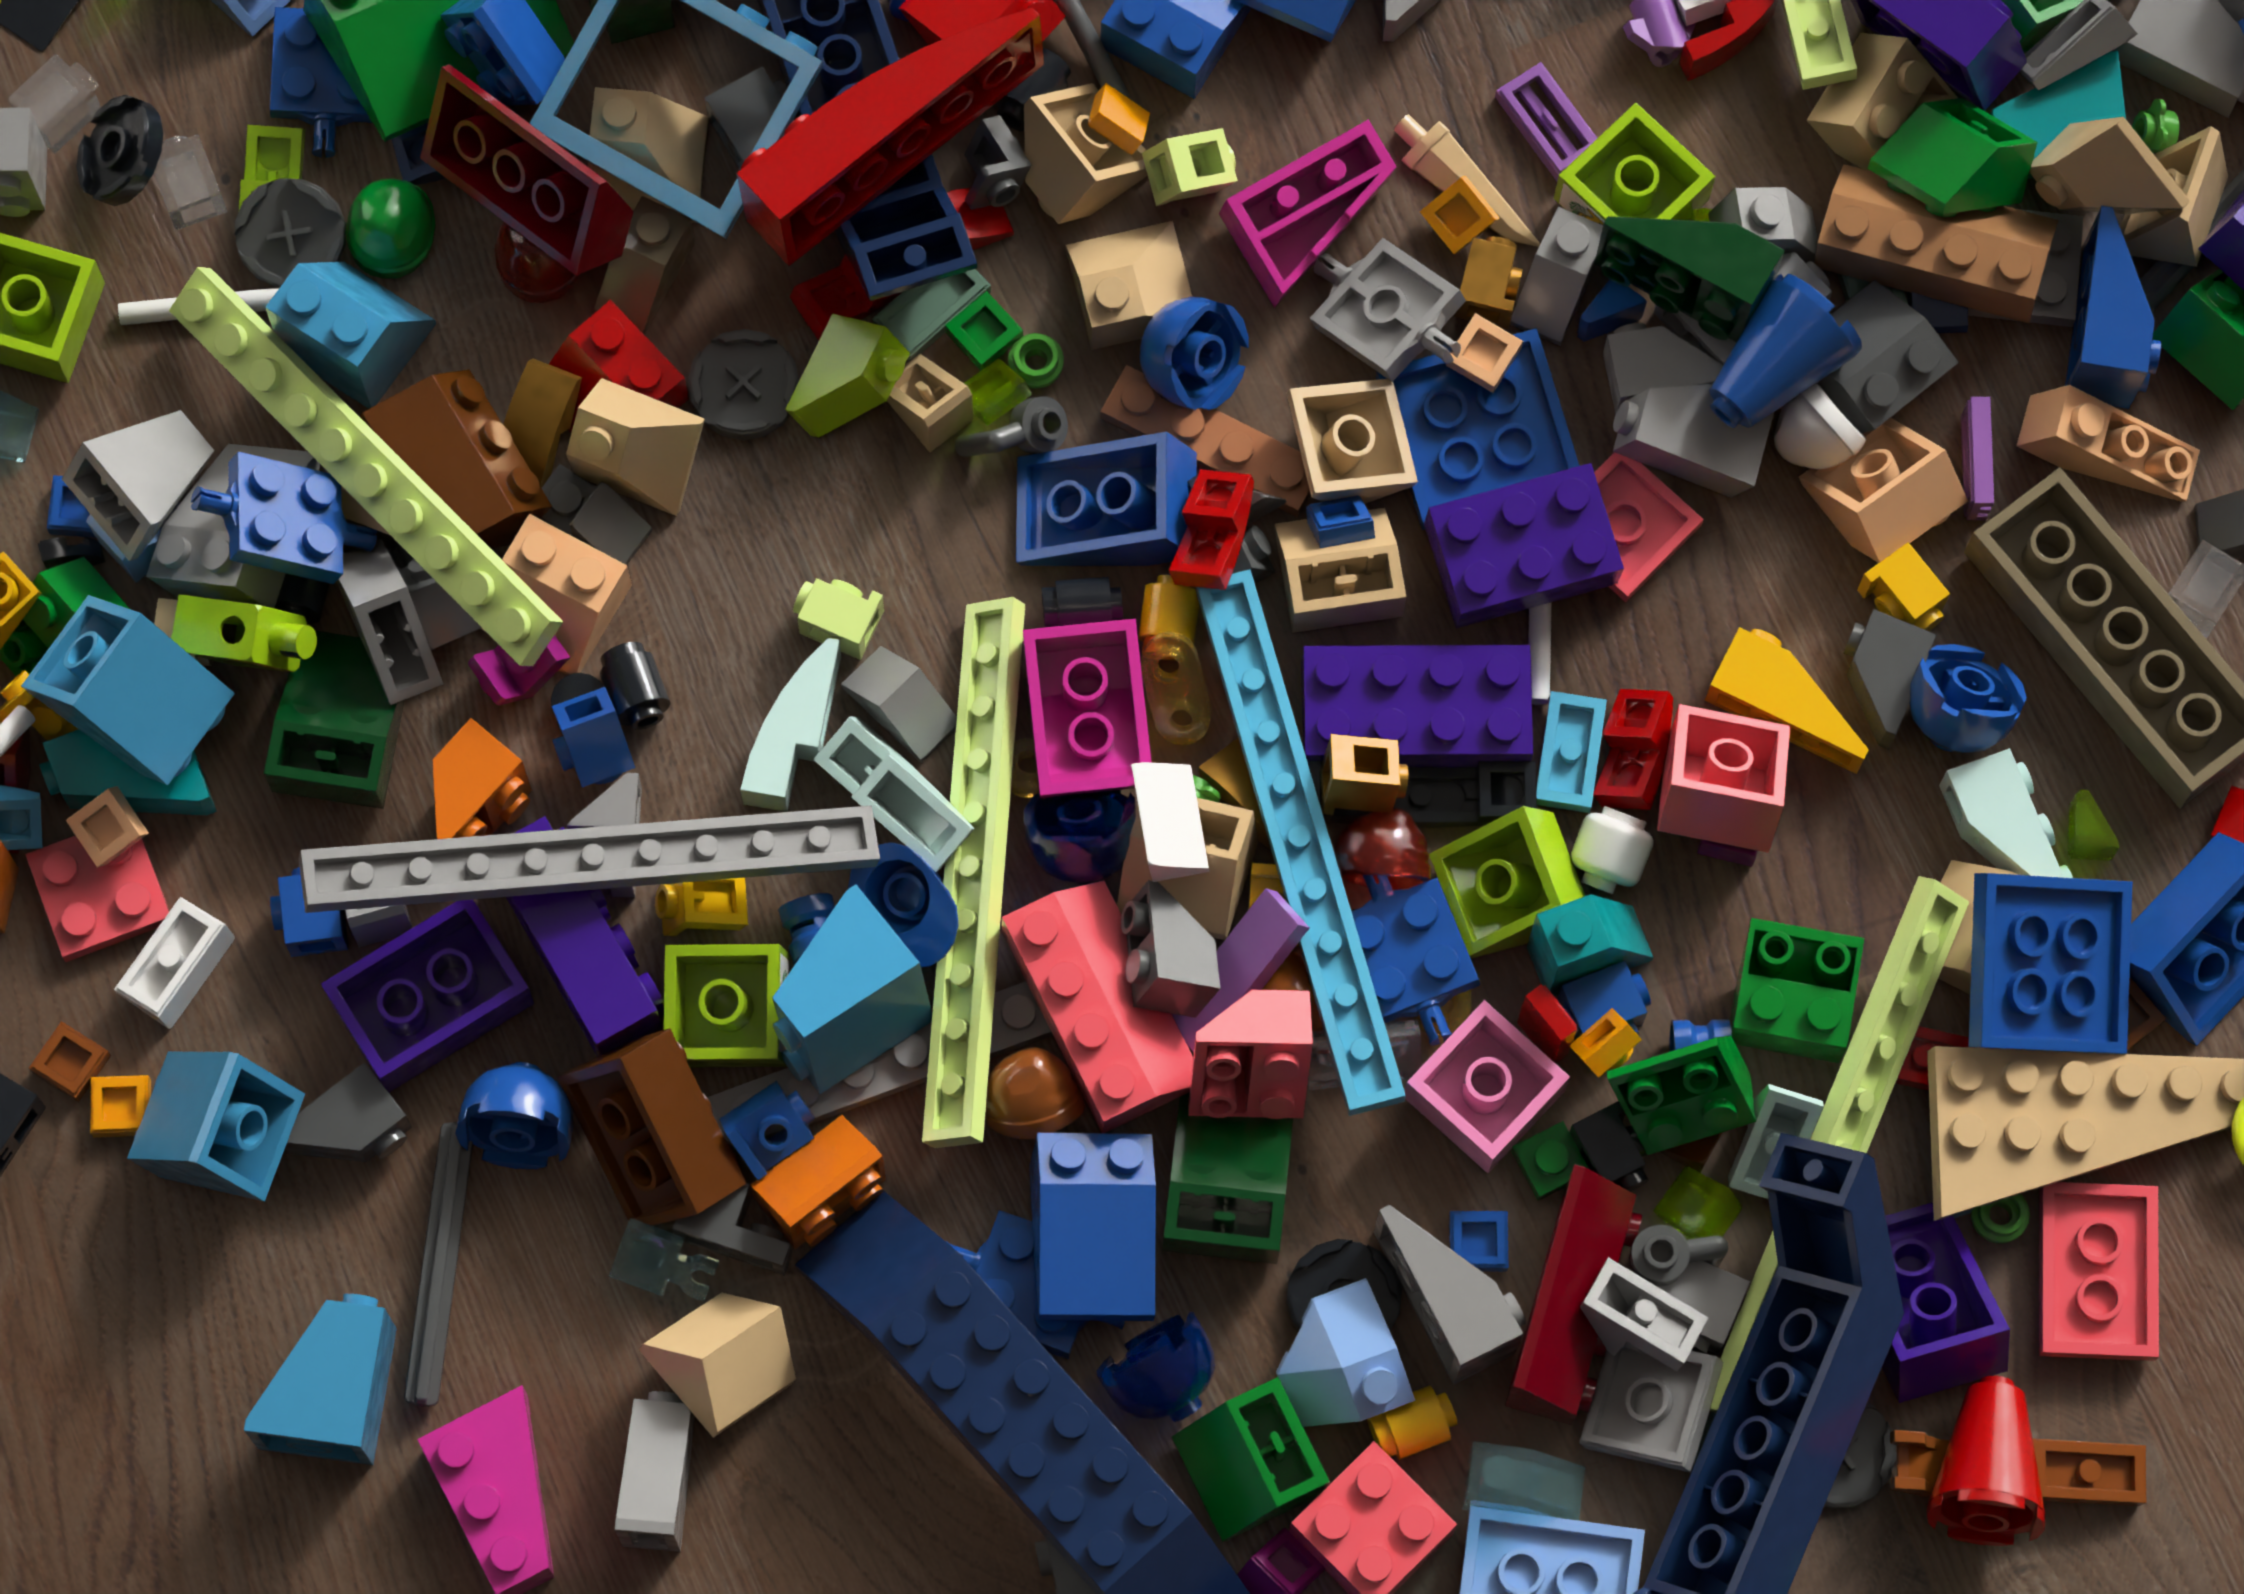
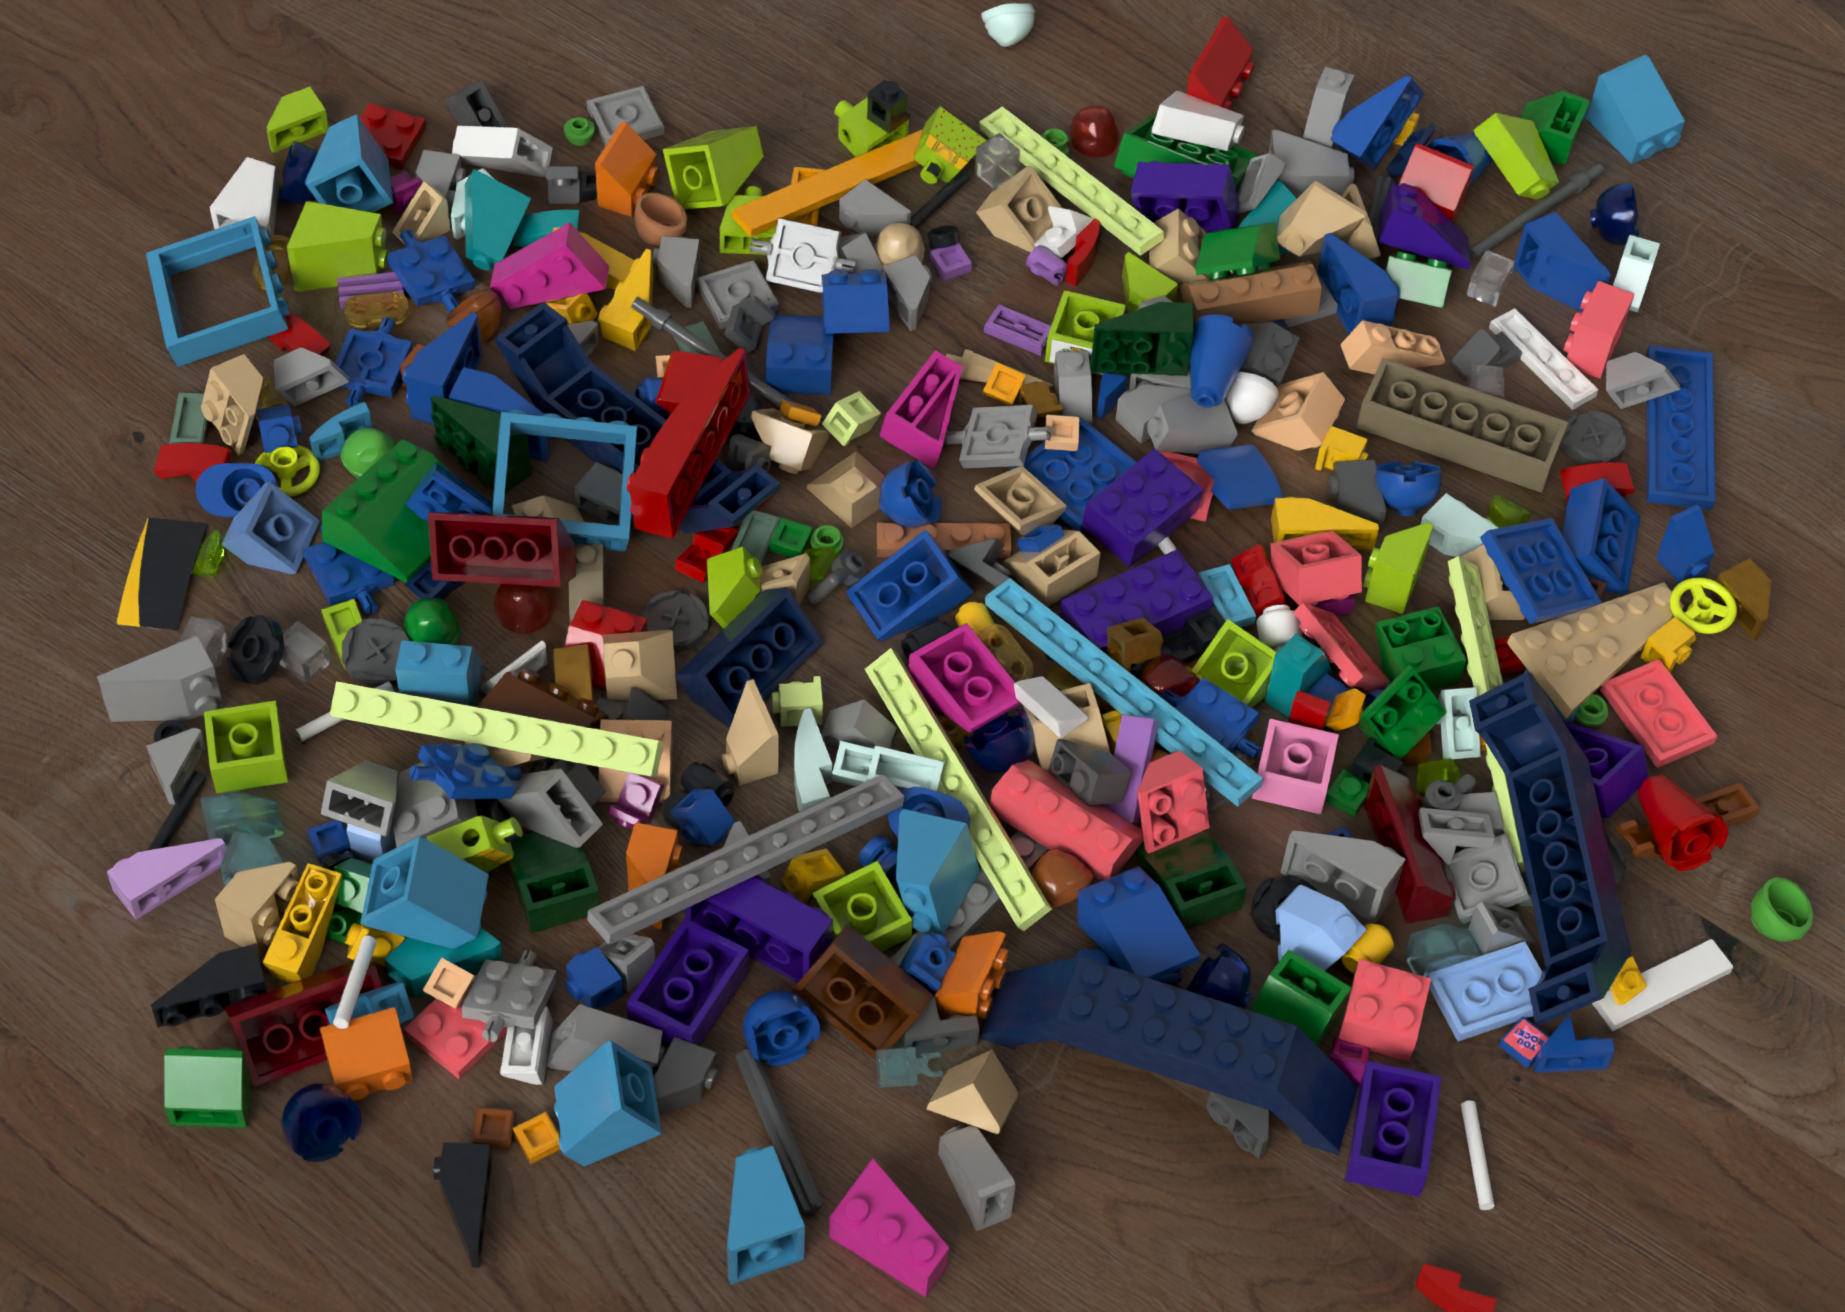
camera: 30 degrees left, 20 degrees down
(182, 881) = (509, 994): none -> light grey plate
(273, 1023) = (589, 1029): none -> light grey slope
(482, 355) = (533, 659): none -> white slope
(727, 646) = (751, 739): none -> tan slope
(810, 505) = (759, 644): none -> dark blue slope
(1215, 529) = (978, 566): red slope -> none
(1626, 1493) = (1497, 928): none -> light grey slope
(1680, 931) = (1341, 648): none -> coral plate
(1717, 558) = (1240, 476): none -> blue slope
(1785, 146) = (1144, 283): none -> lime slope
(1851, 838) = (1397, 567): none -> lime slope
(1977, 458) = (1326, 363): medium lavender tile -> none
(2192, 1172) = (1669, 644): none -> yellow brick

